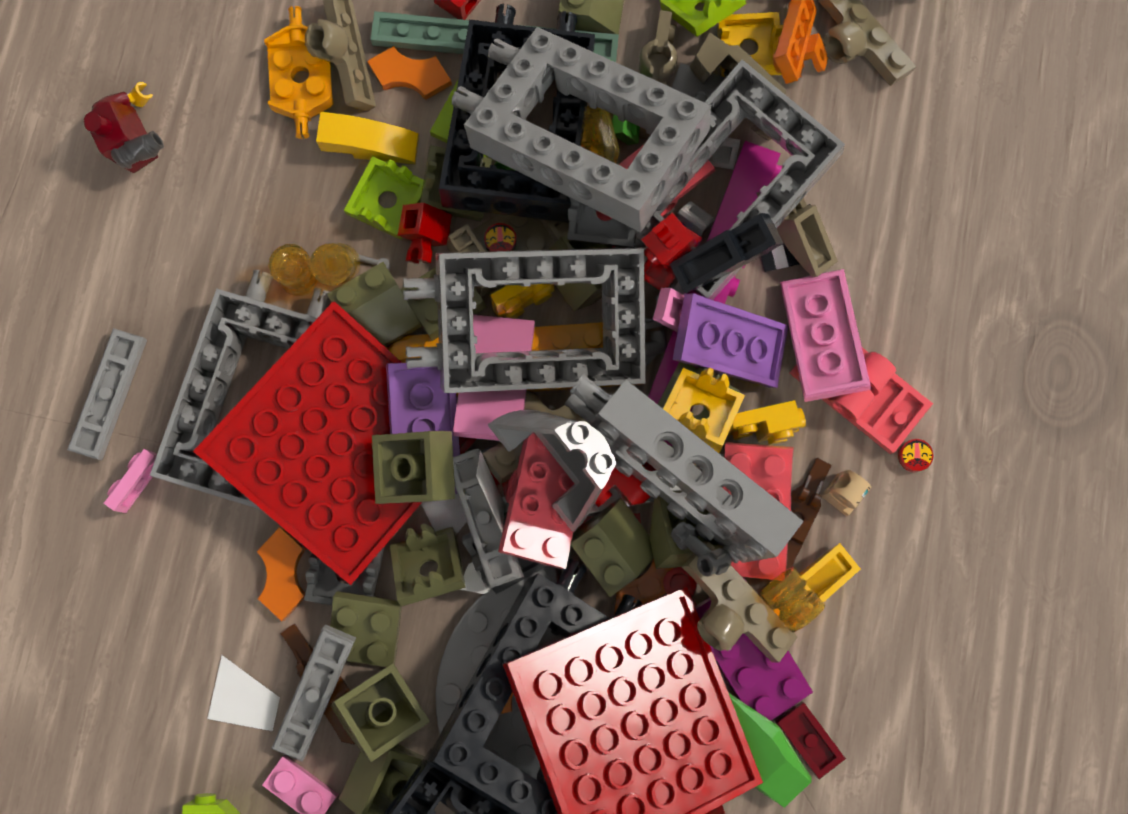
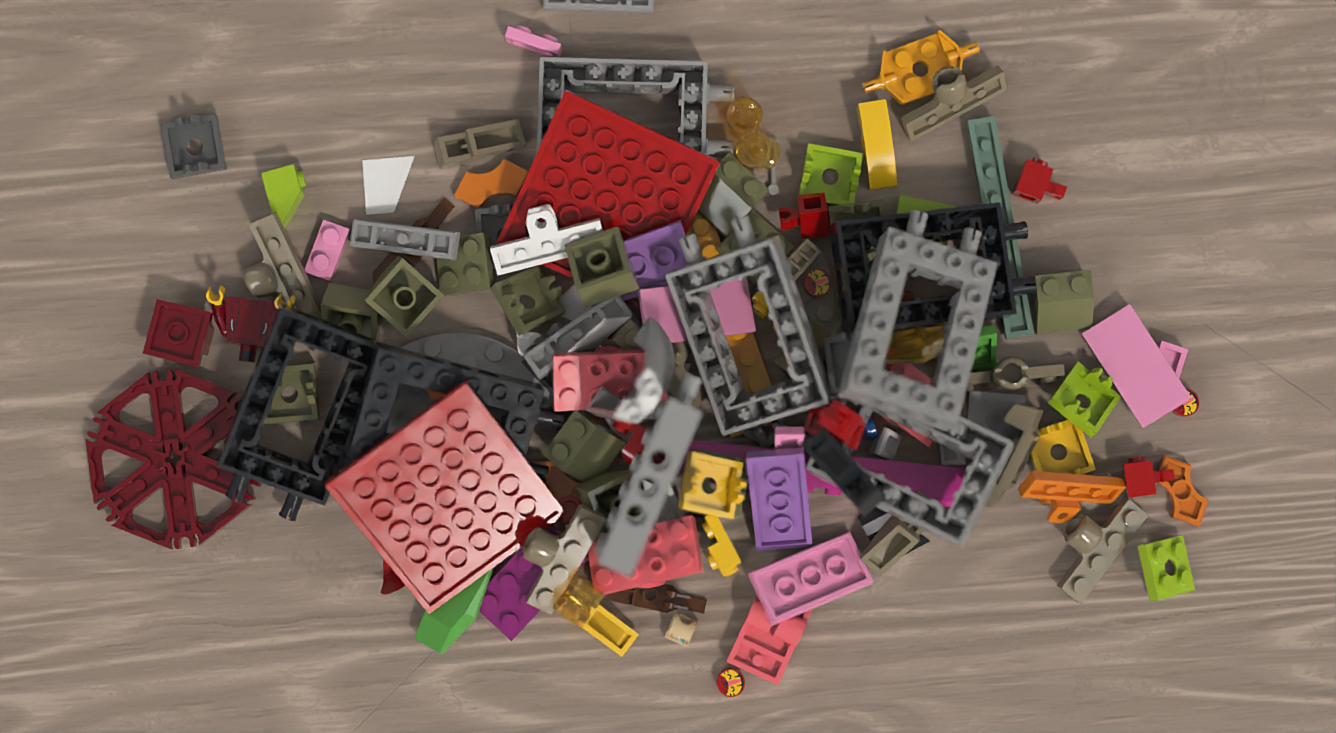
camera: 75 degrees right, 5 degrees up
(229, 576) = (478, 143): none -> dark tan slope
(367, 527) = (544, 243): none -> white plate
(396, 70) = (949, 150): orange tile -> none
(709, 561) = (588, 522): dark grey bar -> none
(810, 740) = (472, 647): dark red plate -> none

